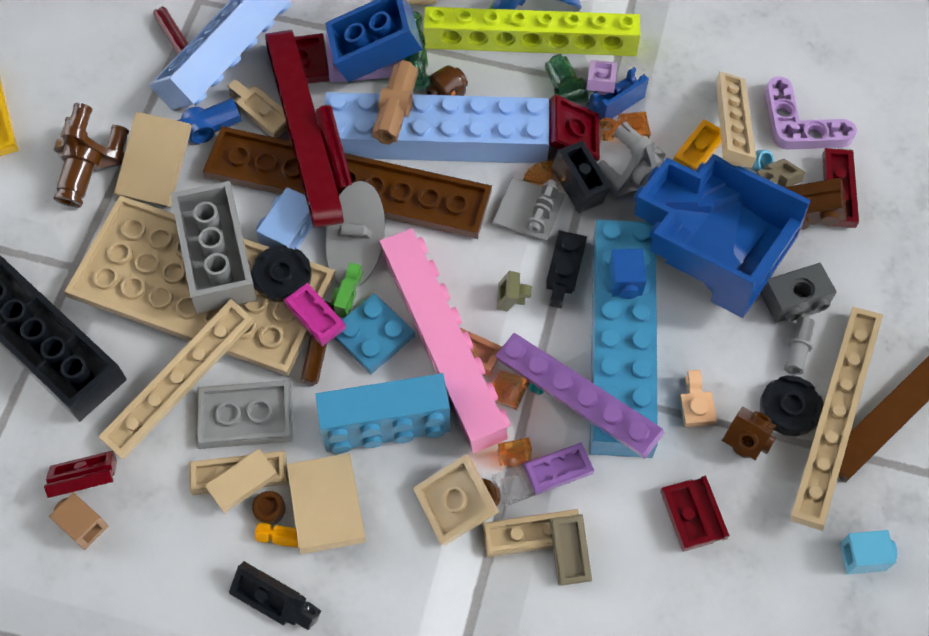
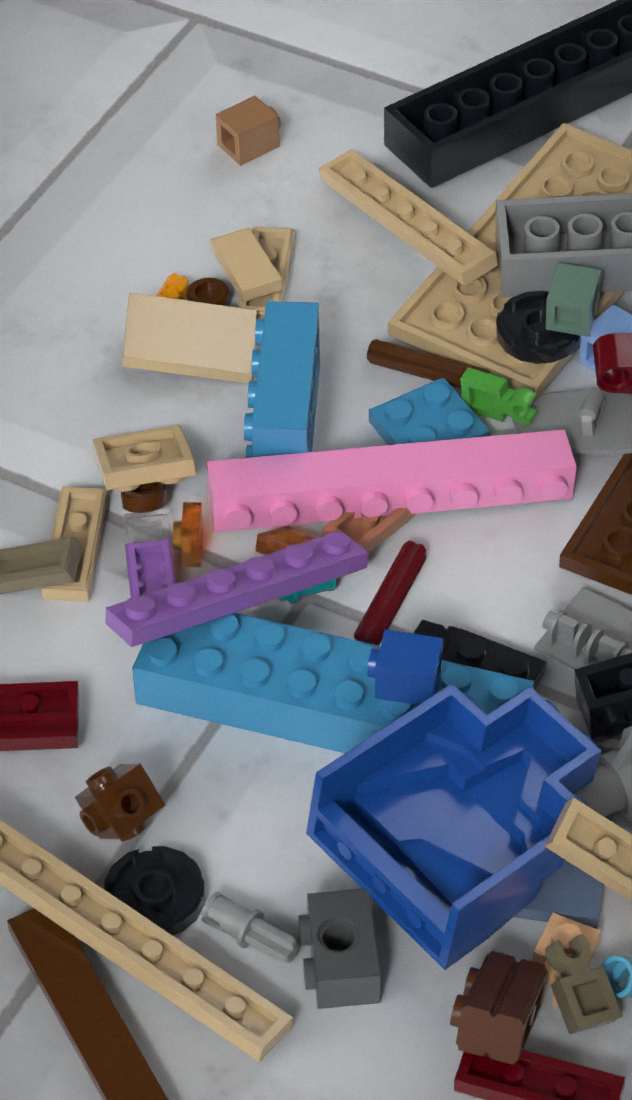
camera: 105 degrees right, 15 degrees down
(80, 474) = (305, 130): dark red plate -> none
(244, 414) = (350, 285): light grey tile -> none
(270, 243) = (573, 299): none -> sand green brick
(272, 597) = (84, 284): black hinge -> none
(314, 314) = (460, 348): dark pink plate -> none
(511, 291) = (447, 578): olive tile -> none
(528, 325) = (391, 593): none -> dark red axle
(696, 406) = (195, 767): light nougat plate -> none

